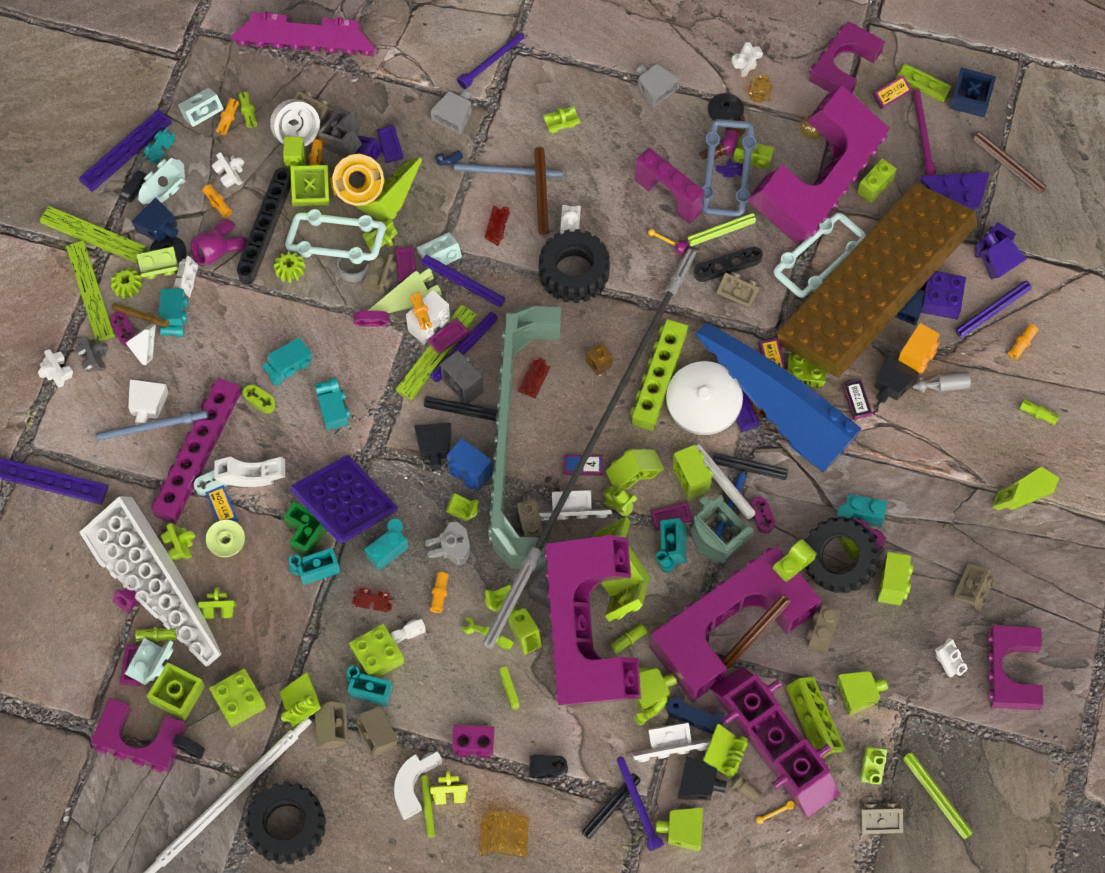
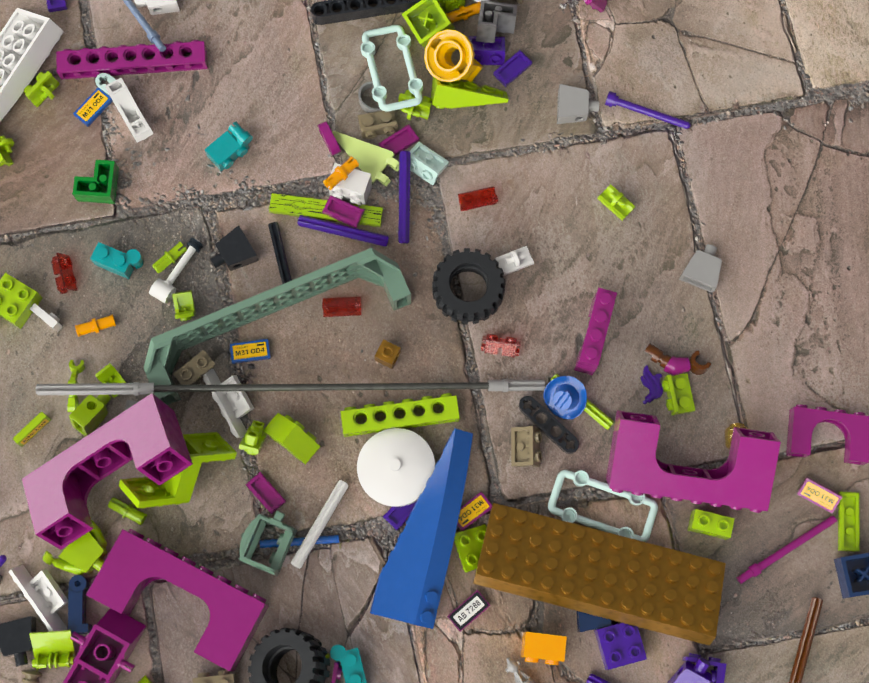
camera: 60 degrees right, 10 degrees up
(225, 530) = (59, 117): yellowish green dish -> none
(261, 395) = (203, 85): lime beam -> none
(287, 361) = (251, 89): teal hinge -> none
(297, 266) = (337, 43): lime gear -> none
(314, 566) = (67, 209): teal hinge -> none
(343, 499) = (138, 201): dark purple plate -> none
(408, 501) = (169, 257): none -> lime axle
(436, 518) = (163, 289): none -> white piece
(450, 160) = (522, 126): dark blue arm -> none
(453, 542) = (143, 315): light grey hinge -> none
(462, 377) = (305, 243): flat silver brick -> none
(469, 465) = (222, 288): blue brick -> none
(505, 170) = (554, 214): sand blue bar -> none
(534, 472) = (250, 351): none -> tile
(541, 191) = (532, 220): reddish brown axle -> none
(593, 466) = (281, 399): tile -> none
(634, 273) = (493, 343): none -> clear red hinge
(672, 545) = (232, 507): teal hinge -> none
(679, 246) = (543, 372): hinge -> none
(692, 472) = (311, 491): lime brick -> none
(713, 237) = (565, 397): none -> blue hat
(718, 111) = (708, 352): black dish -> none
(747, 58) = (774, 339): white hips -> none
(748, 143) = (665, 349): sand blue bar -> none
(750, 466) = (349, 540): black axle -> none
(755, 631) = (174, 623): reddish brown axle -> none
(760, 88) = (751, 367): clear yellow head -> none
(766, 513) = (309, 578): magenta beam -> none
(797, 559) = (253, 628): lime plate -> none
(894, 379) = (504, 636): black torso -> none
(961, 188) = (744, 608): dark purple wing -> none

